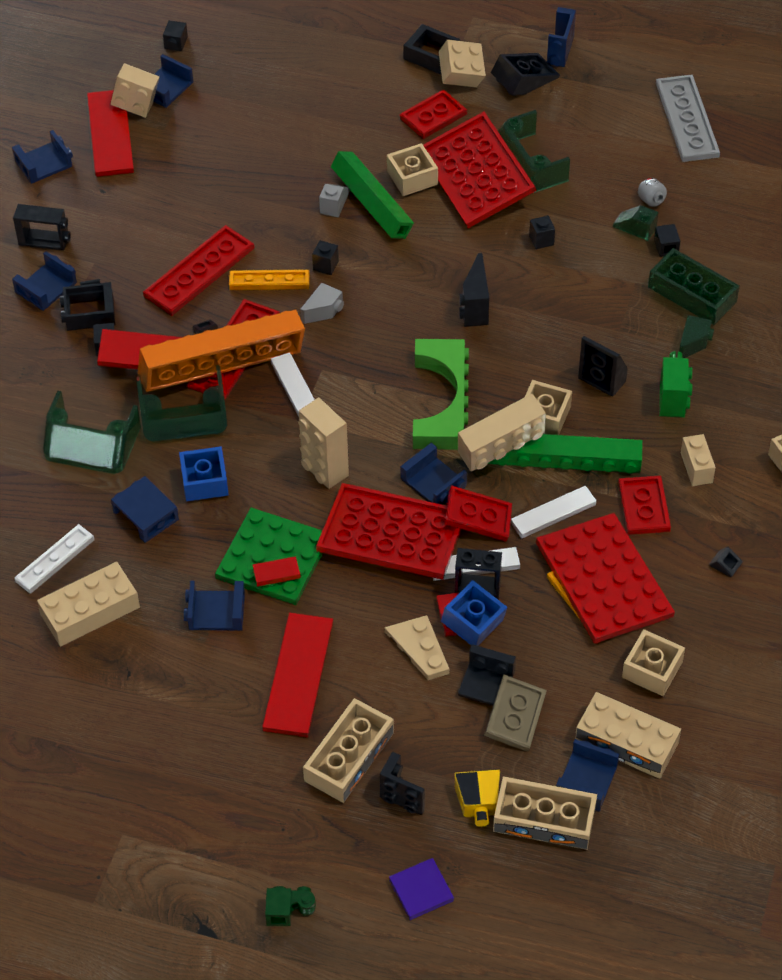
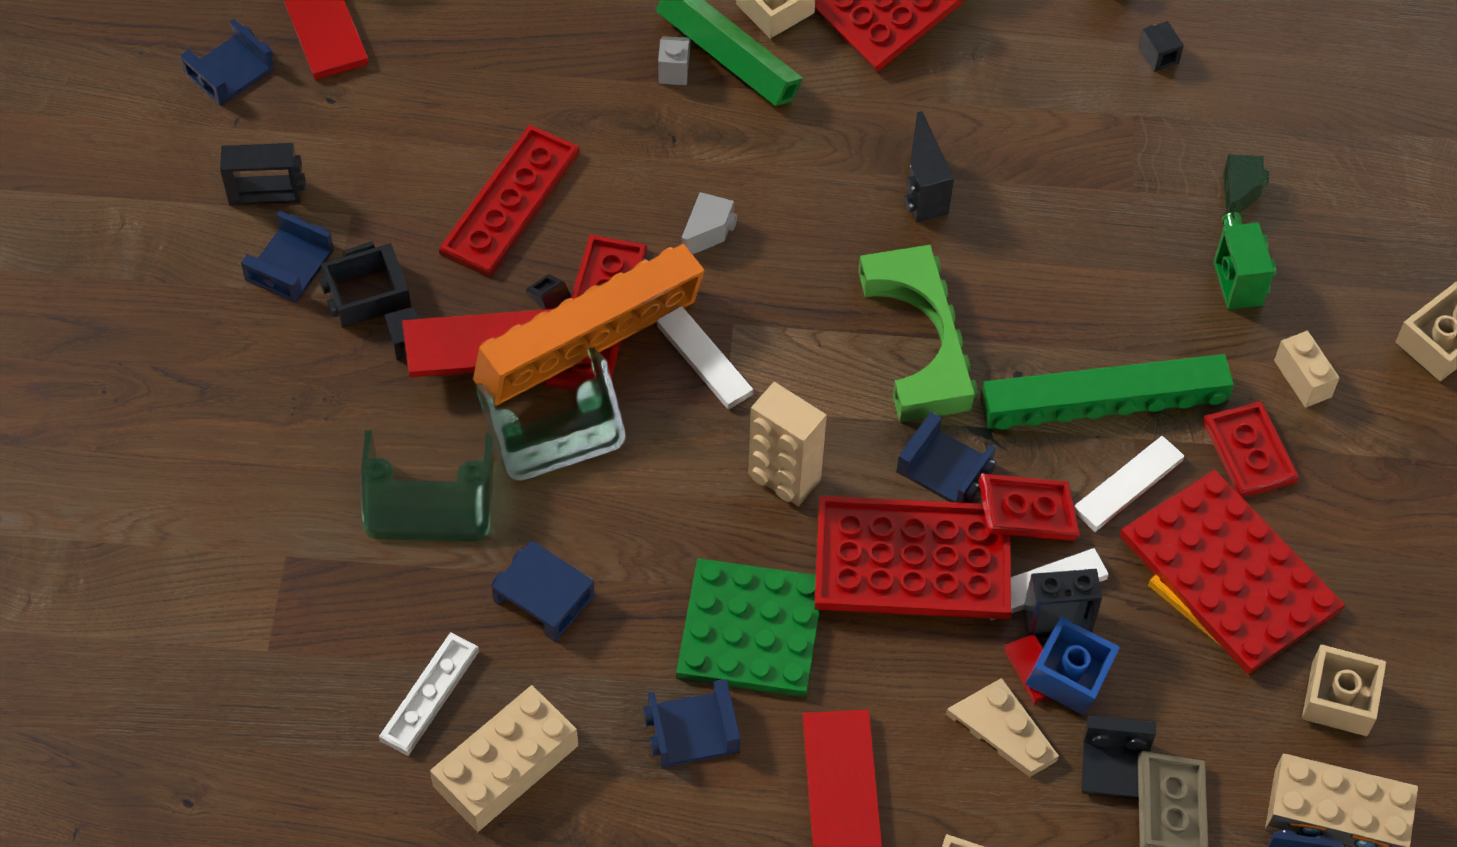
camera: 15 degrees left, 5 degrees up
(203, 473) = (616, 519): blue brick -> none
(269, 279) = (617, 198): light orange tile -> none
(276, 571) = (768, 653): red tile -> none
(325, 257) = (690, 151): black brick -> none
(501, 432) = (1036, 382): tan brick -> none
(542, 232) = (985, 62): black brick -> none
(555, 403) = (1073, 329): tan brick -> none
(601, 367) = (1135, 254): black slope -> none
(638, 221) = (1111, 24): clear green slope -> none
(693, 286) = (1220, 109): clear green brick -> none
(726, 562) = (1388, 514): black slope -> none

